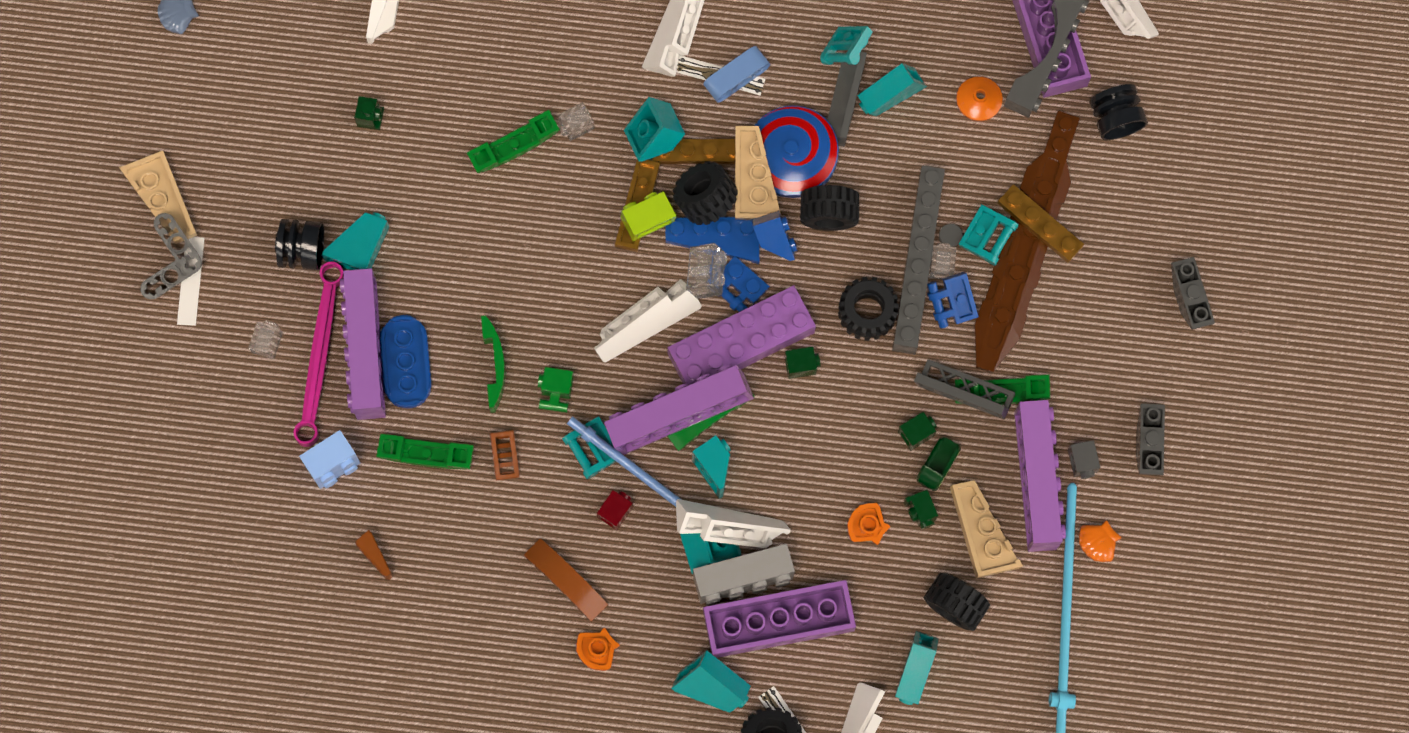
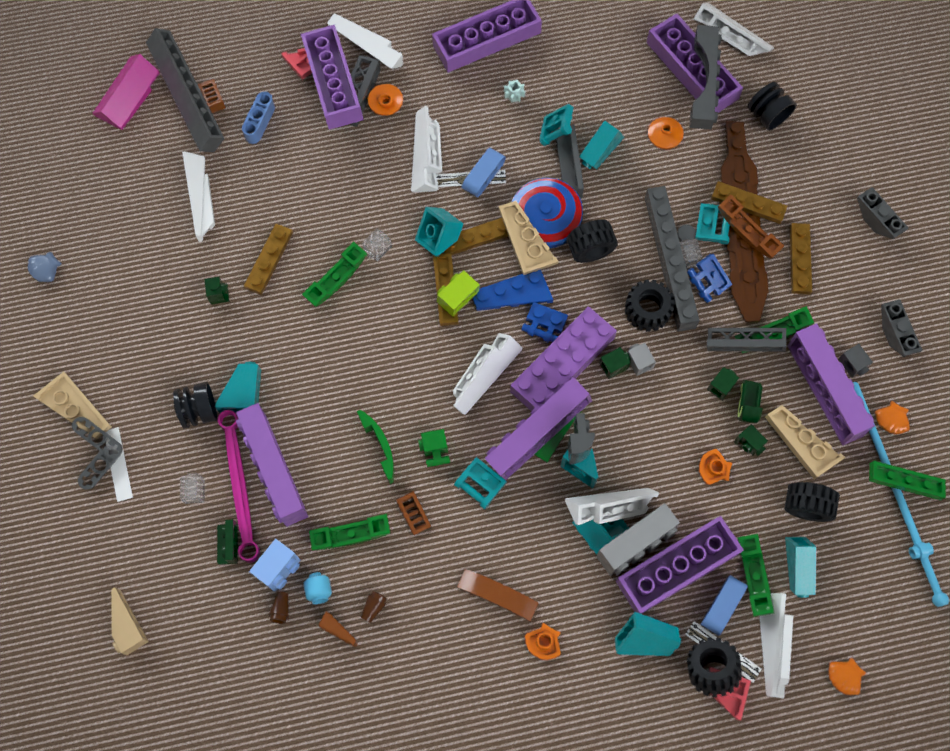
camera: 15 degrees left, 5 degrees down
(143, 468) = (125, 628): none -> tan slope
(285, 415) = (227, 543): none -> dark green bracket
(319, 508) = (280, 608): none -> reddish brown cone
(368, 501) = (317, 588): none -> medium azure head
(405, 361) = (309, 468): blue tile -> none
(423, 542) = (373, 605): none -> reddish brown cone
(442, 94) = (268, 259): none -> pearl gold plate
(588, 434) = (475, 473): medium blue bar -> none
(615, 509) = (516, 524): dark red brick -> none
(705, 193) = (494, 261): black tyre -> none
(706, 271) = (517, 318): clear brick -> none
(715, 445) = (581, 441): none -> dark grey brick
(773, 235) = (557, 275): blue slope -> none
(813, 680) = (724, 605): none -> medium blue beam
(833, 368) = (641, 358): none -> light grey brick
(863, 660) = (756, 575): none -> green slope
(1024, 255) = (748, 229): none -> dark orange slope
(1075, 313) = (800, 259): none -> pearl gold plate
(1079, 616) = (907, 480): none -> green plate

